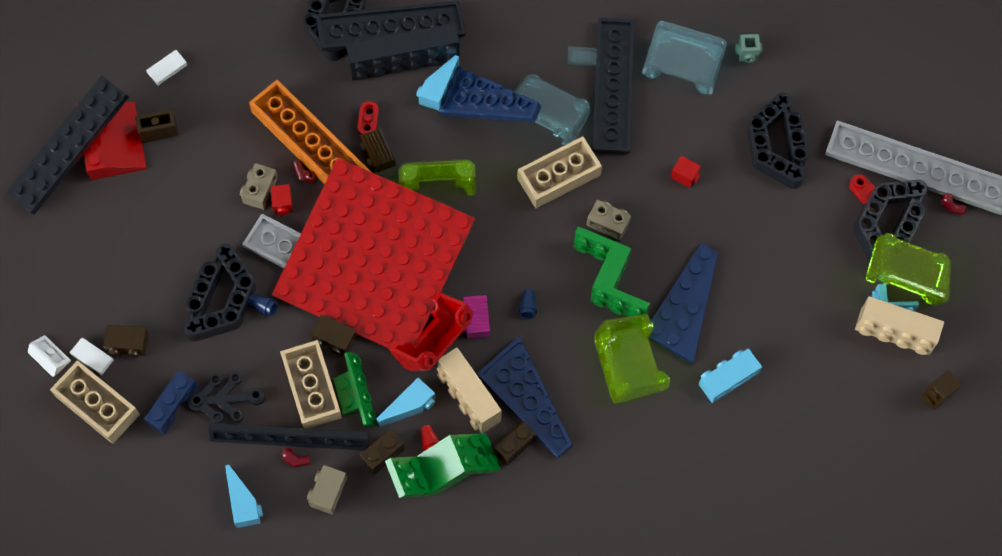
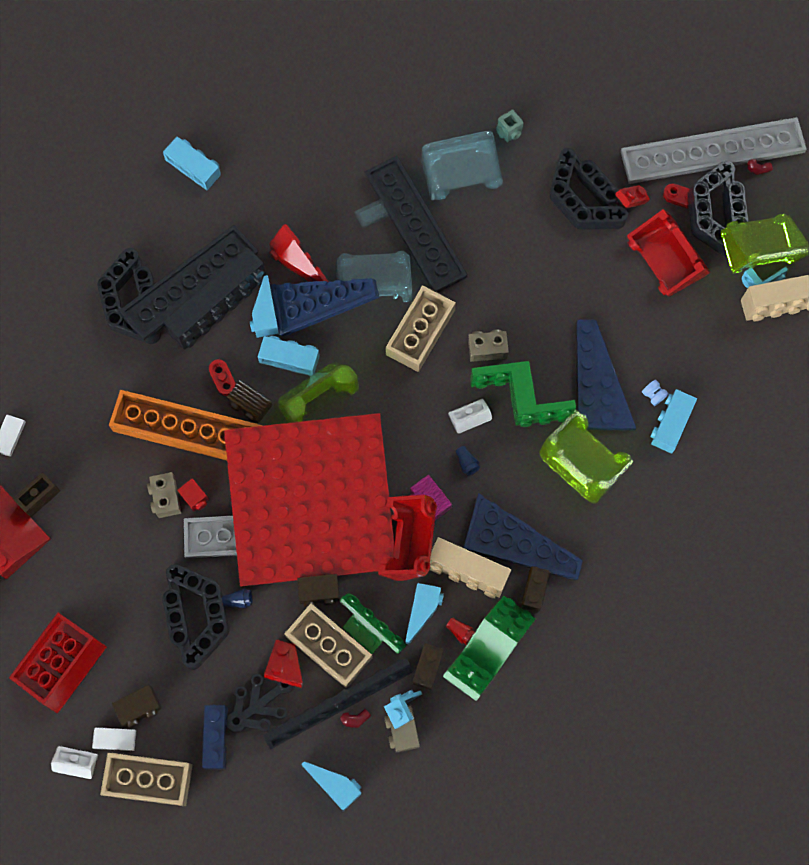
camera: 30 degrees left, 5 degrees up
(87, 269) = (57, 663): none -> red slope
(265, 378) = (284, 664): none -> red wing
(302, 174) = (196, 461): dark red arm -> none
(333, 466) = (398, 709): none -> medium azure bracket
(434, 132) = (288, 355): none -> medium azure brick
(490, 50) = (289, 253): none -> red wedge
(556, 270) = (470, 416): none -> white slope
(686, 172) = (526, 265): red brick -> none
(729, 342) = (655, 392): none -> light blue wheel
(819, 166) = (633, 196): none -> red plate
(820, 231) = (668, 253): none -> red windscreen

